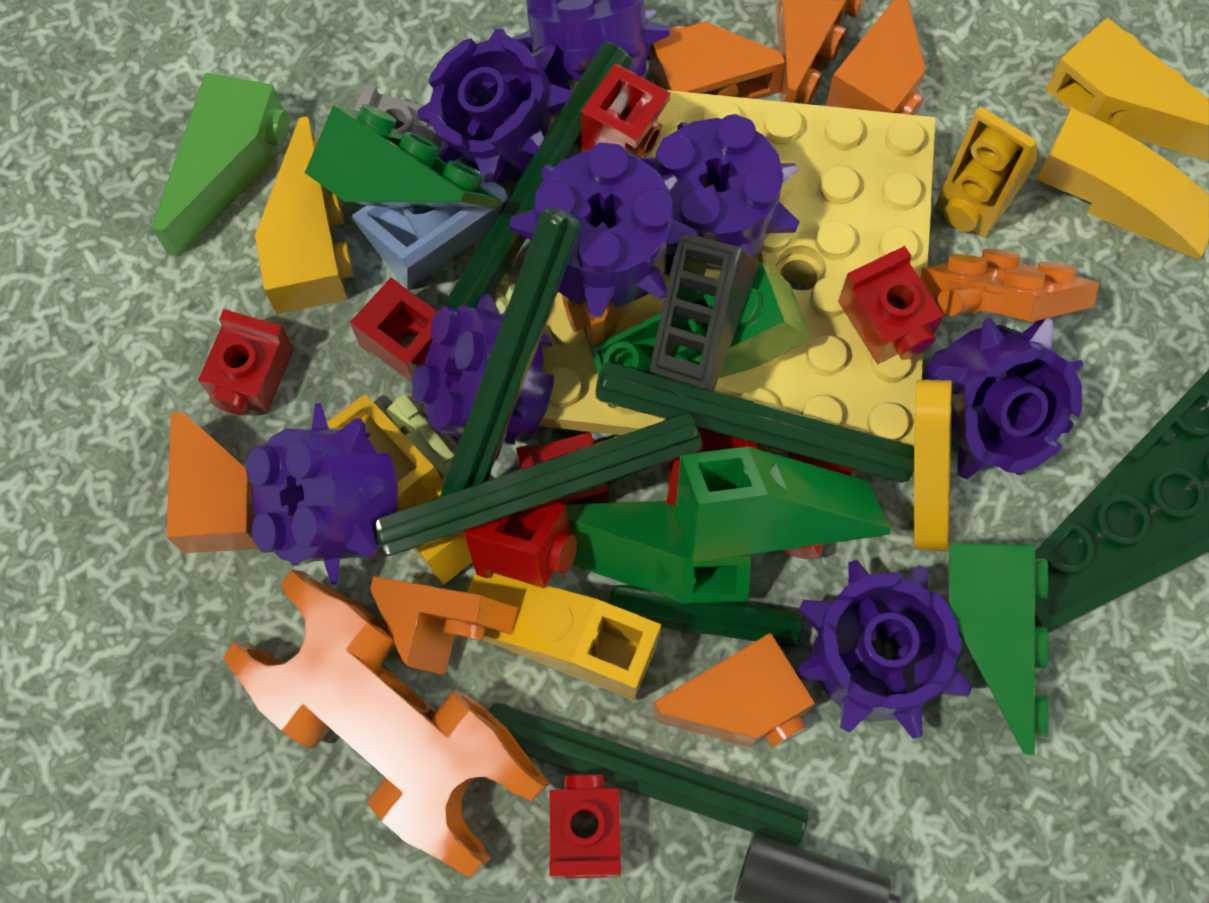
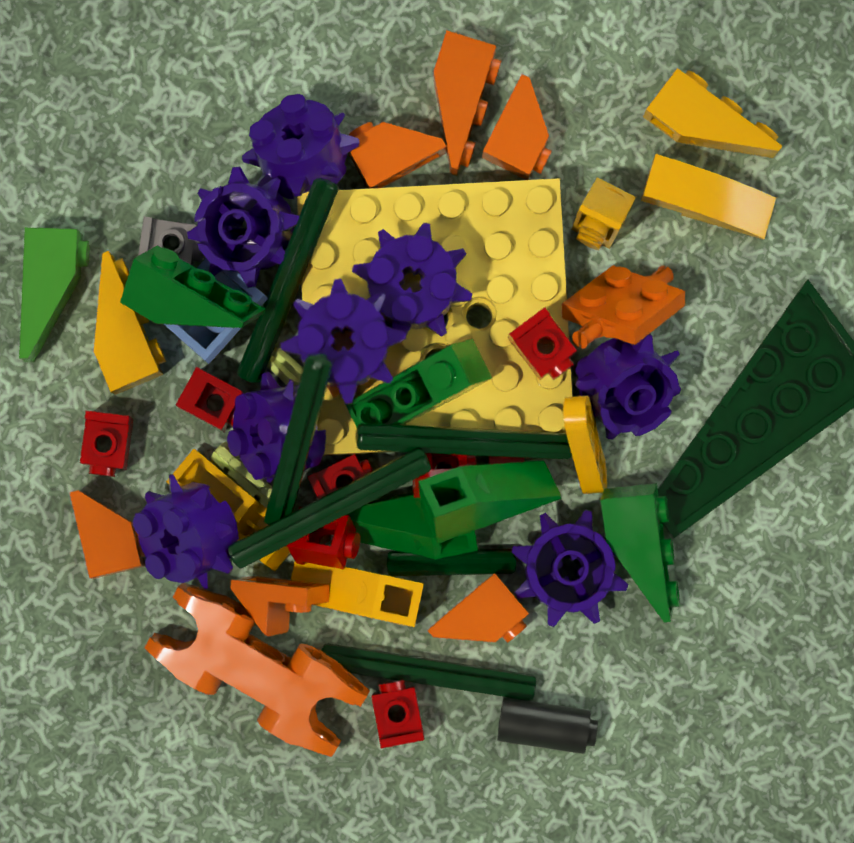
camera: 10 degrees left, 15 degrees up
(631, 114) = (340, 240): red brick -> none
(679, 306) = (402, 370): pearl dark grey slope -> none

